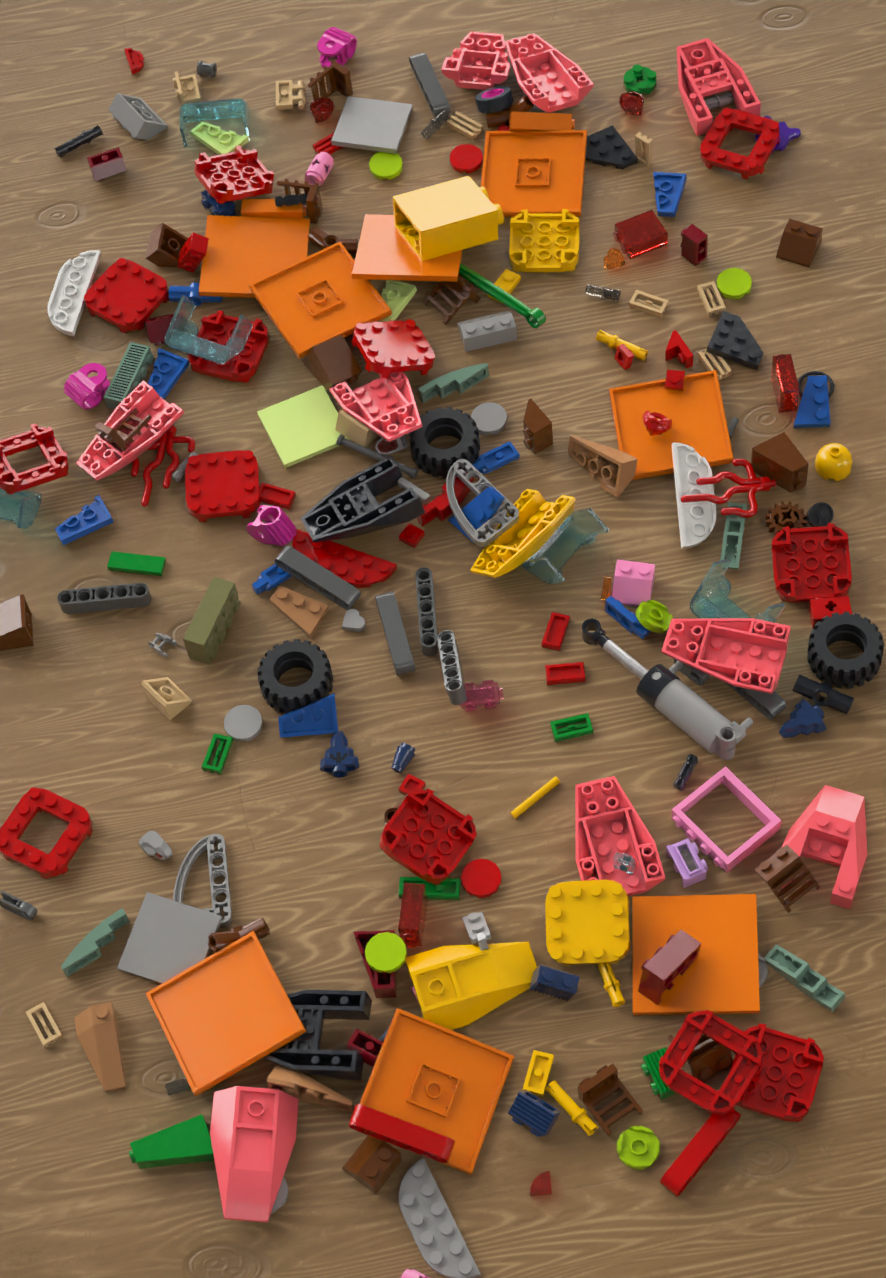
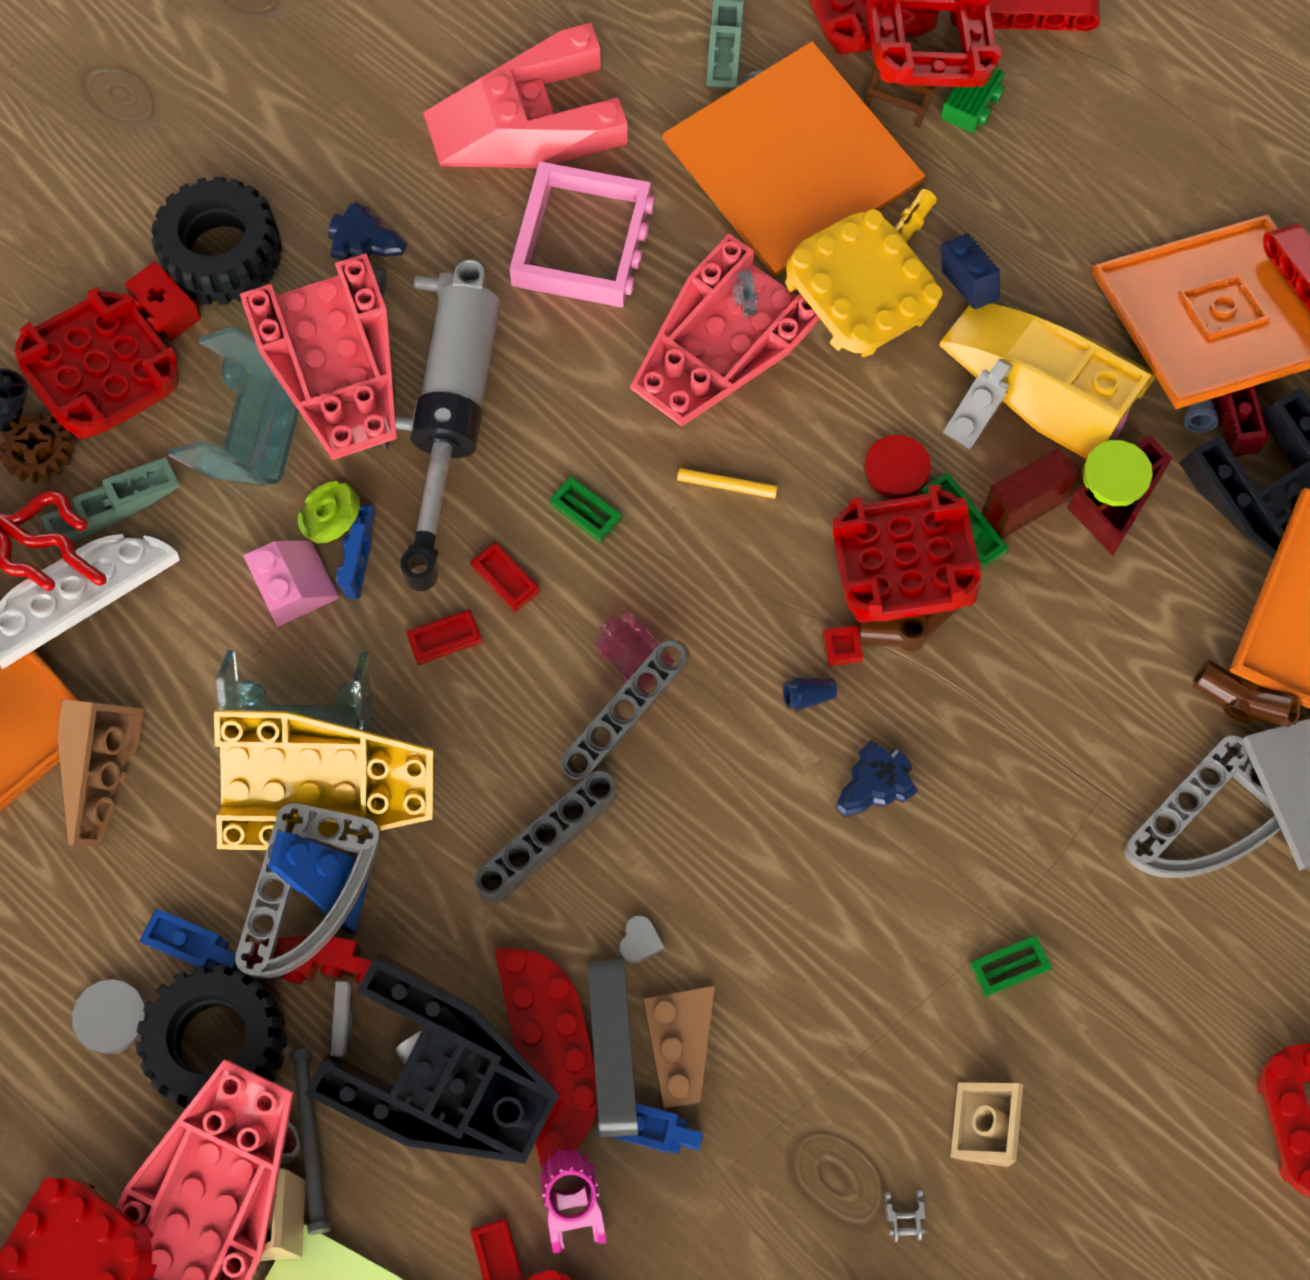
camera: 135 degrees left, 10 degrees up
(155, 846) = (1223, 927): light grey rock -> none
(211, 620) = (816, 1149): olive brick -> none
(243, 723) = (933, 968): light grey tile -> none
(289, 656) = (819, 891): black tyre -> none
(311, 719) = (856, 862): blue wing -> none
(395, 633) = (616, 857): dark grey beam -> none
(411, 535) = (425, 963): red plate -> none
(457, 380) = (64, 1121): sand green slope -> none
(534, 1113) = (1144, 188): dark blue brick -> none
(536, 429) = (90, 910): reddish brown slope -> none
(538, 1073) = (1090, 224): yellow plate -> none
(541, 1185) = (1210, 137): clear red tile -> none
(568, 1104) = (1099, 152): yellow pin -> none
(600, 1087) = (1049, 142): reddish brown plate -> none
(606, 587) = (323, 611): clear orange tile -> none
(638, 1147) = (1076, 74): lime tile -> none
(667, 965) = (843, 155): wedge -> none
(685, 772) = (545, 327): black axle -> none
(687, 862) = (677, 240): lavender window -> none
(780, 870) = (616, 107): reddish brown plate -> none
(834, 699) = (307, 231): black piece -> none

